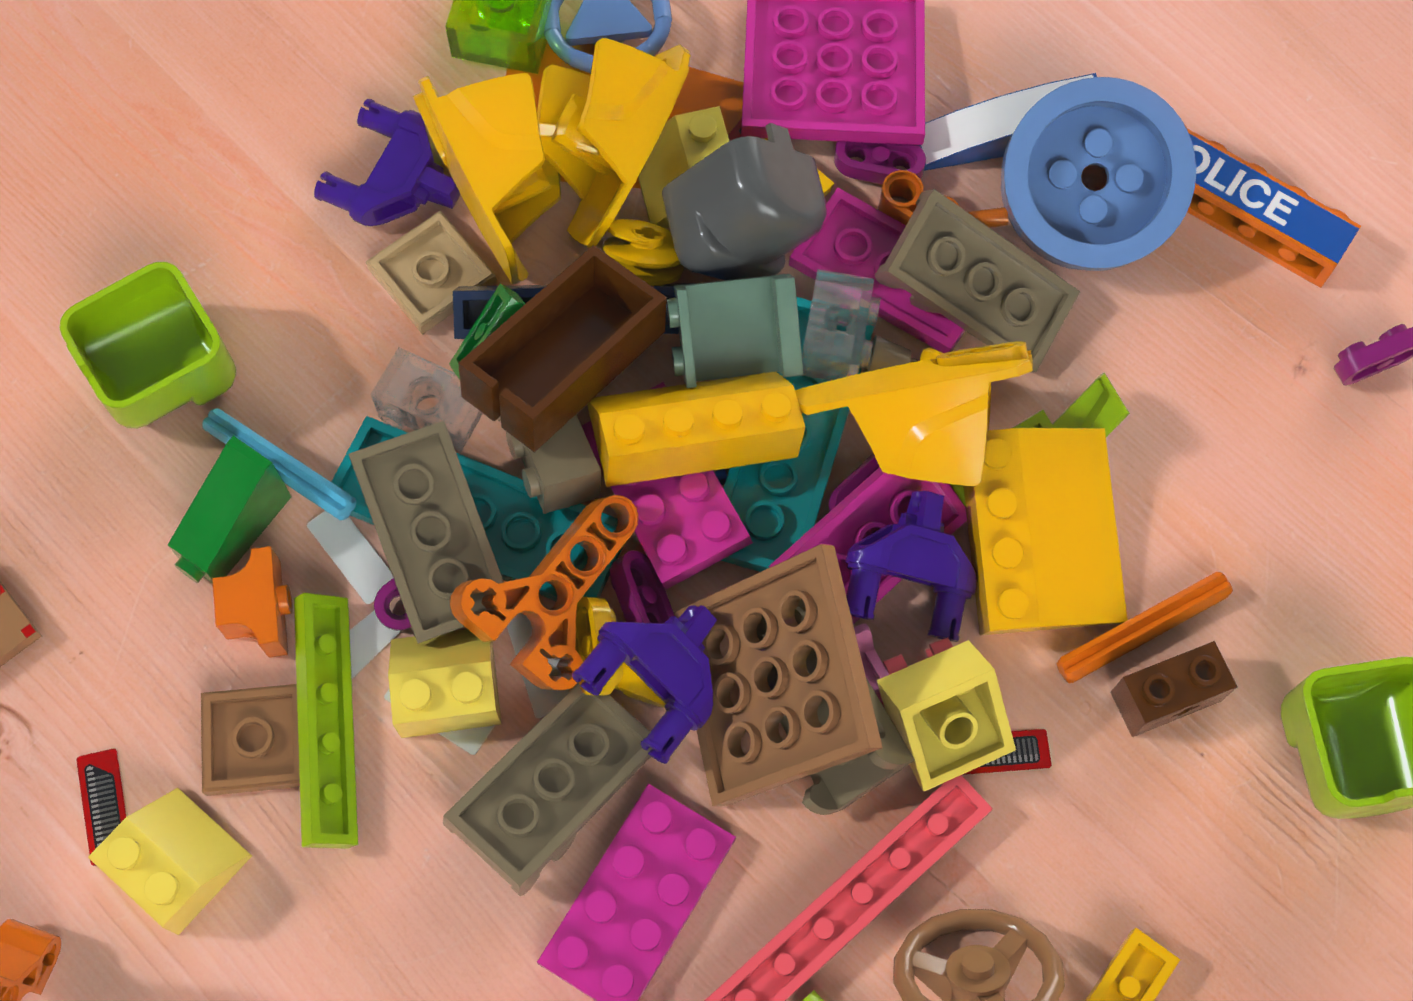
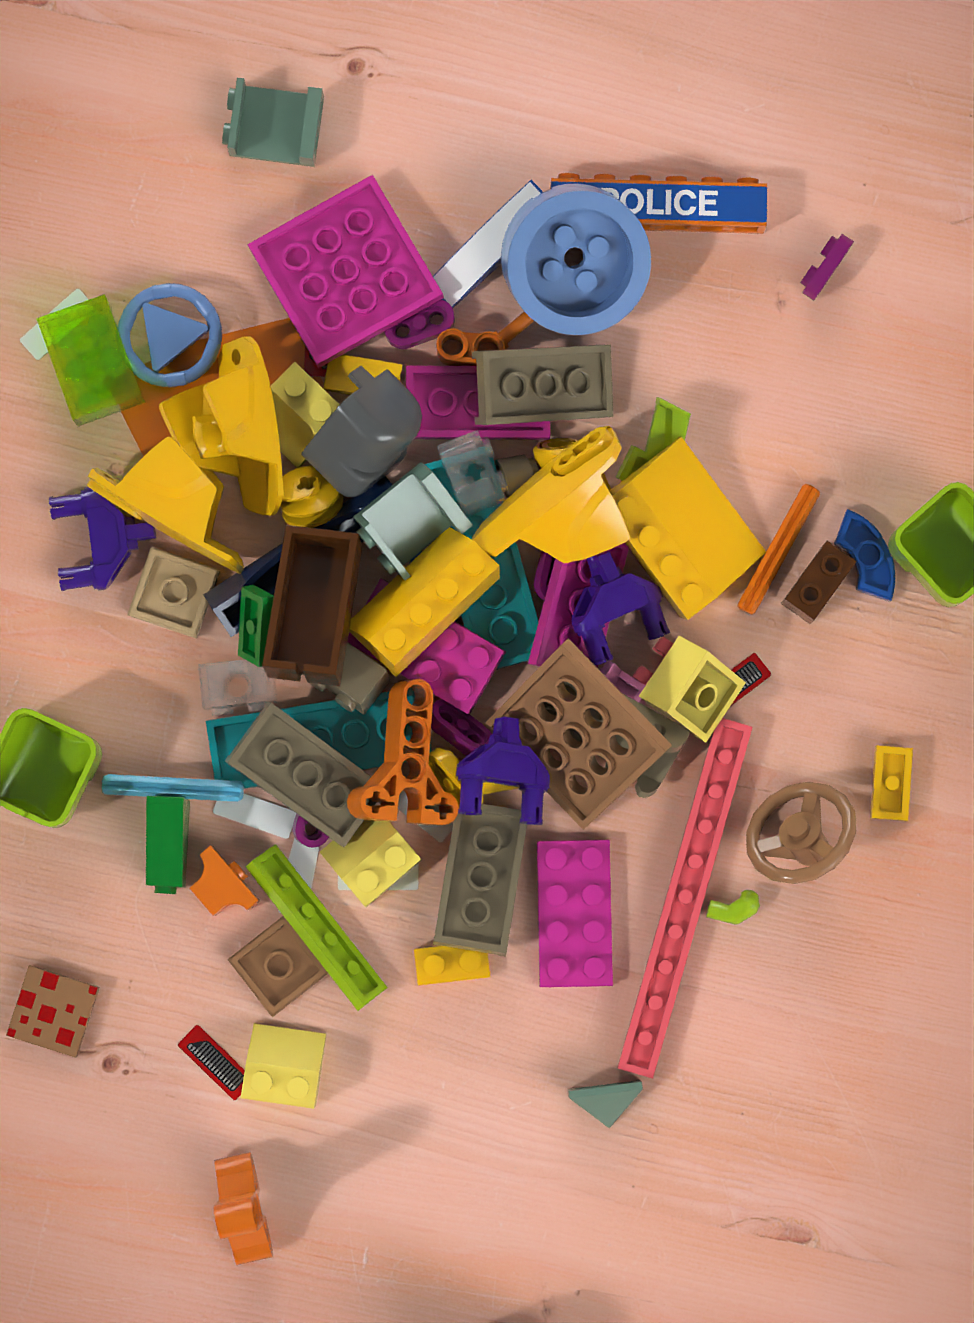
camera: 35 degrees left, 15 degrees up
(449, 866) = (449, 964): none -> yellow plate
(1254, 705) = (868, 548): none -> blue tile

